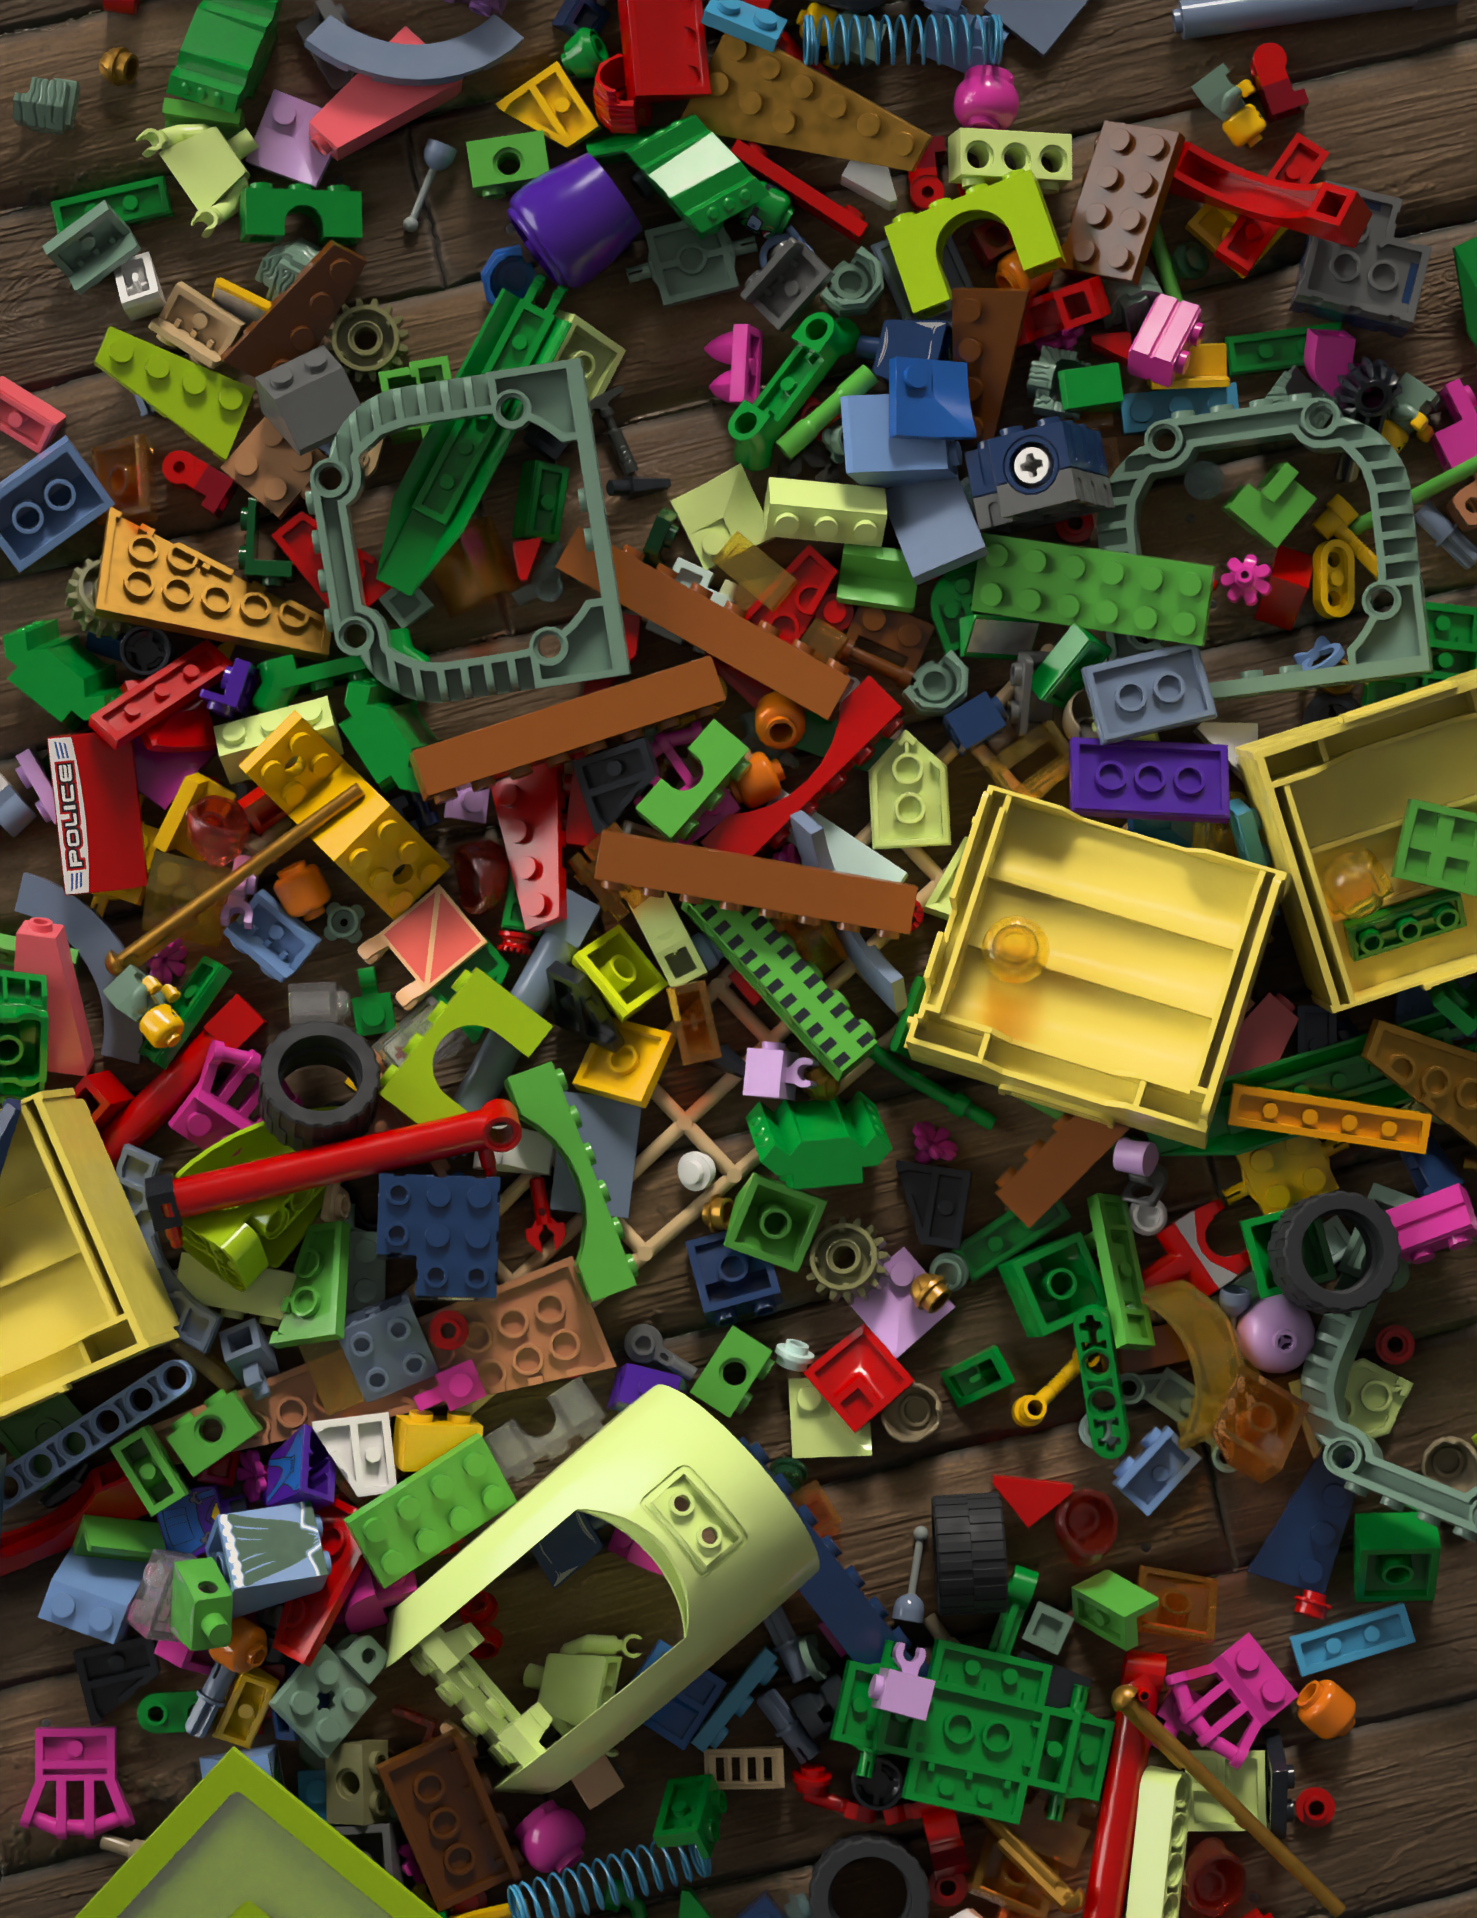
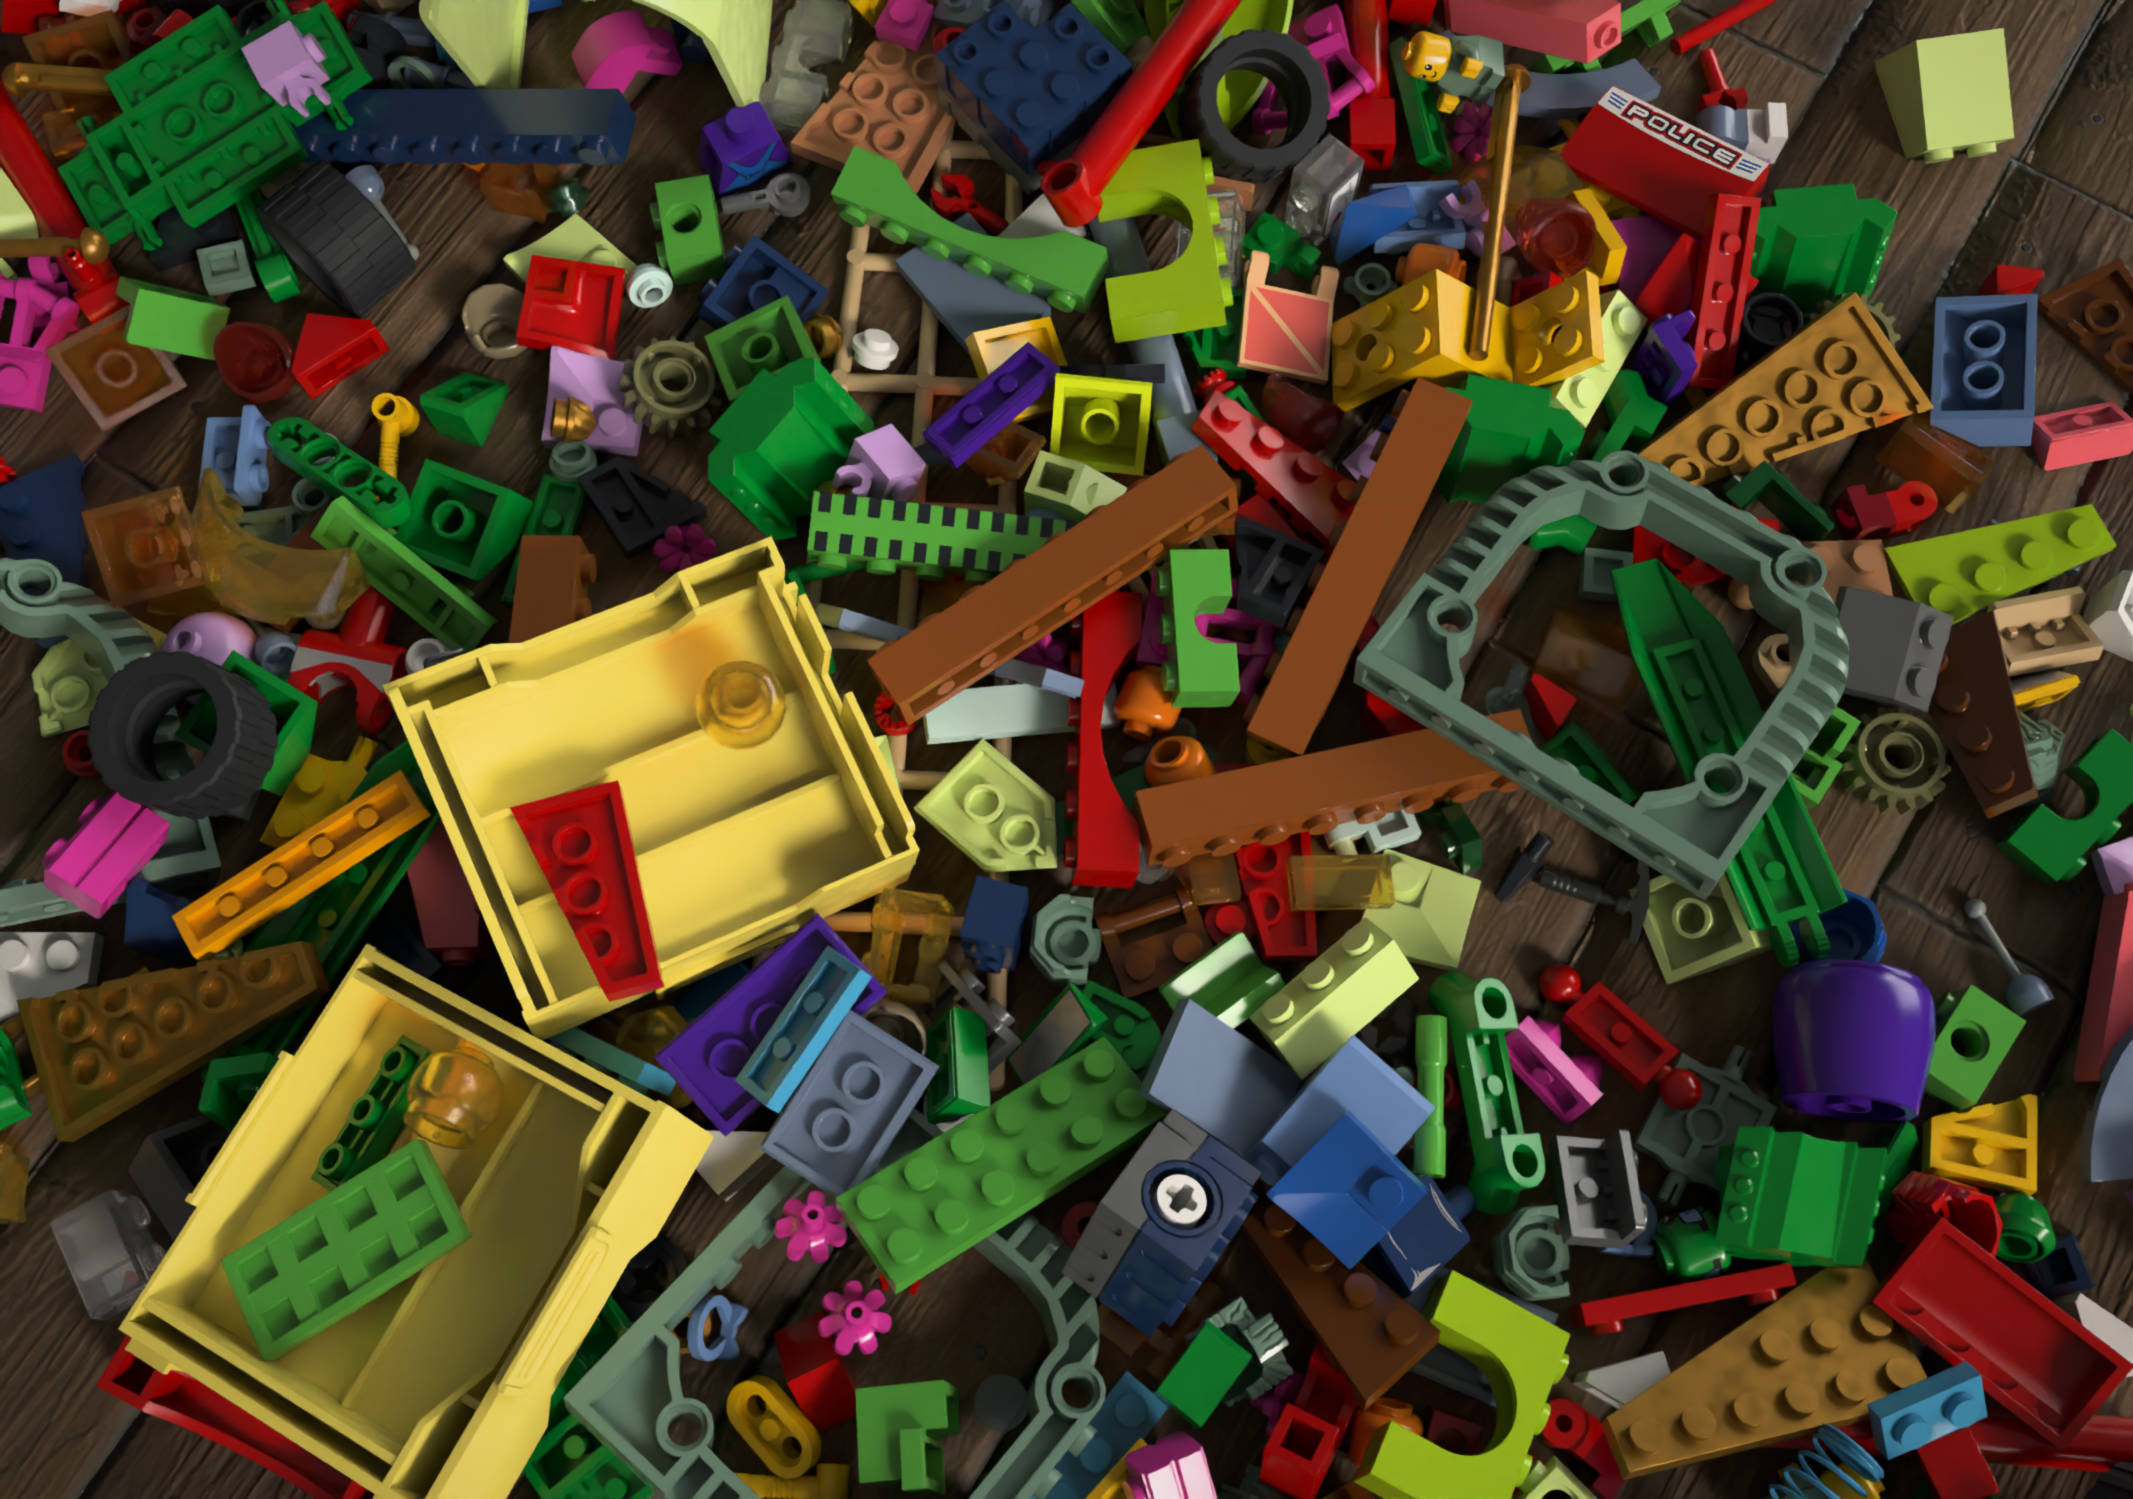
camera: 135 degrees right, 15 degrees down
(307, 955) = (1369, 220): none -> blue slope
(675, 1042) = (991, 405): none -> dark purple tile
(687, 346) = (1621, 1037): none -> red plate
(1112, 346) = (1226, 1450): red slope -> none
(1137, 753) = (803, 1029): none -> dark azure plate
(1180, 925) = (595, 875): none -> red wing
(1234, 649) = (810, 1228): none -> dark pink plant

